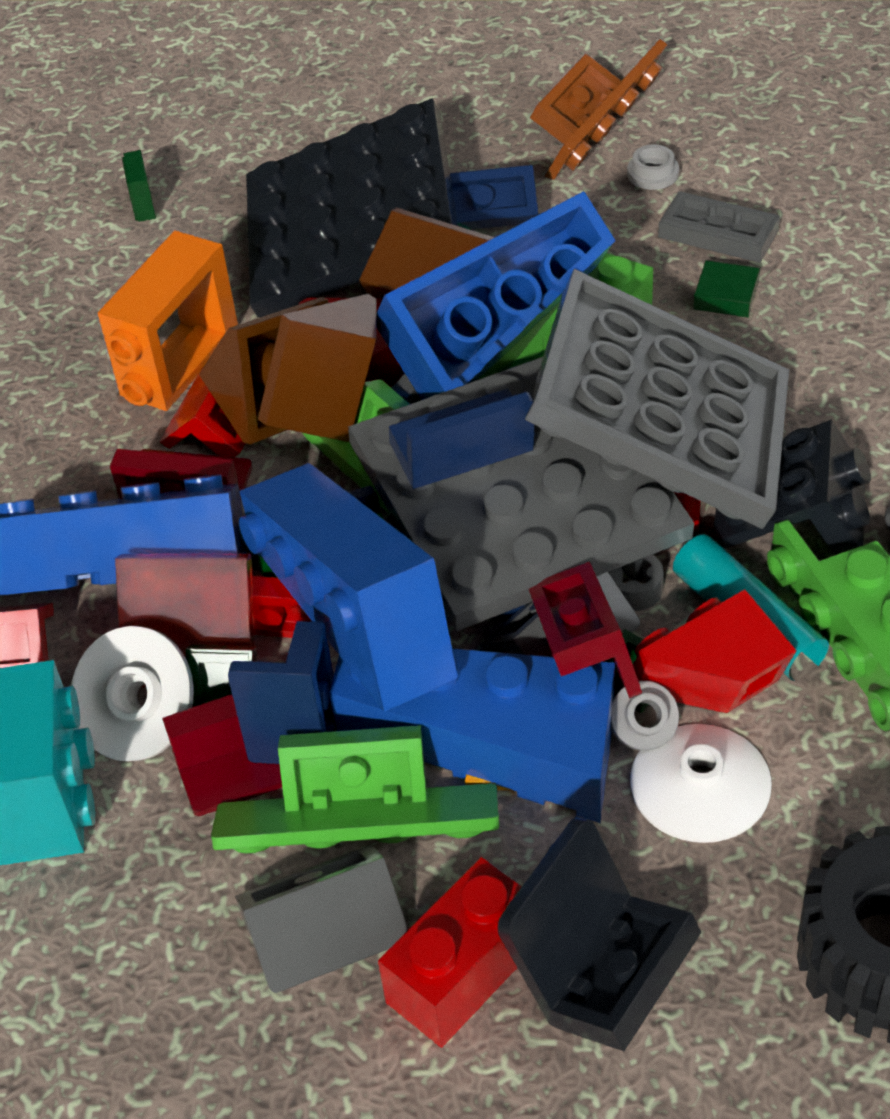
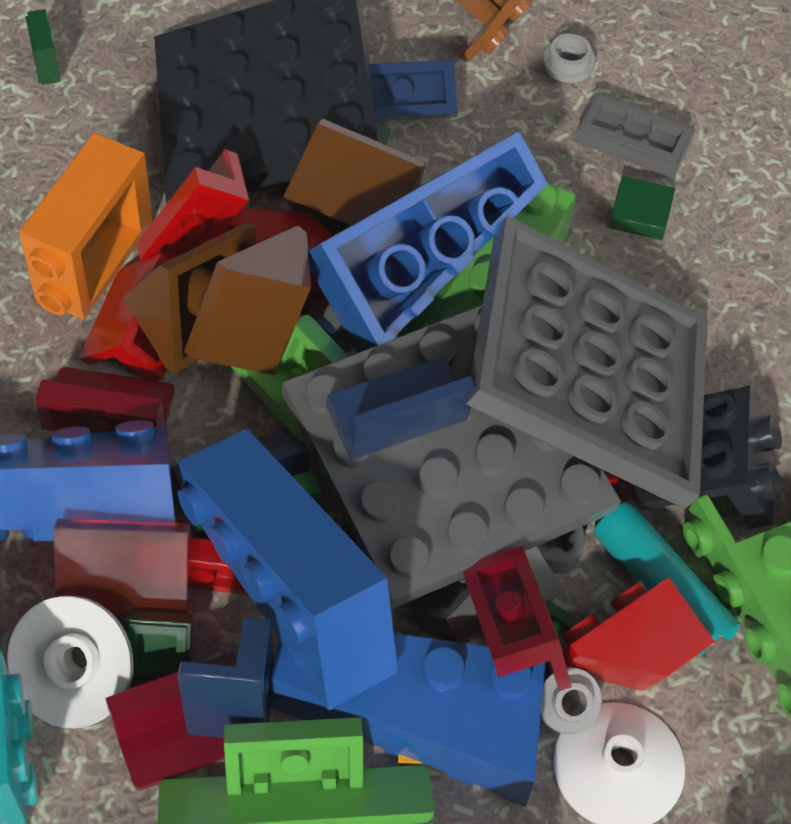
camera: 10 degrees left, 10 degrees up
(278, 285) = (197, 210): none -> red panel

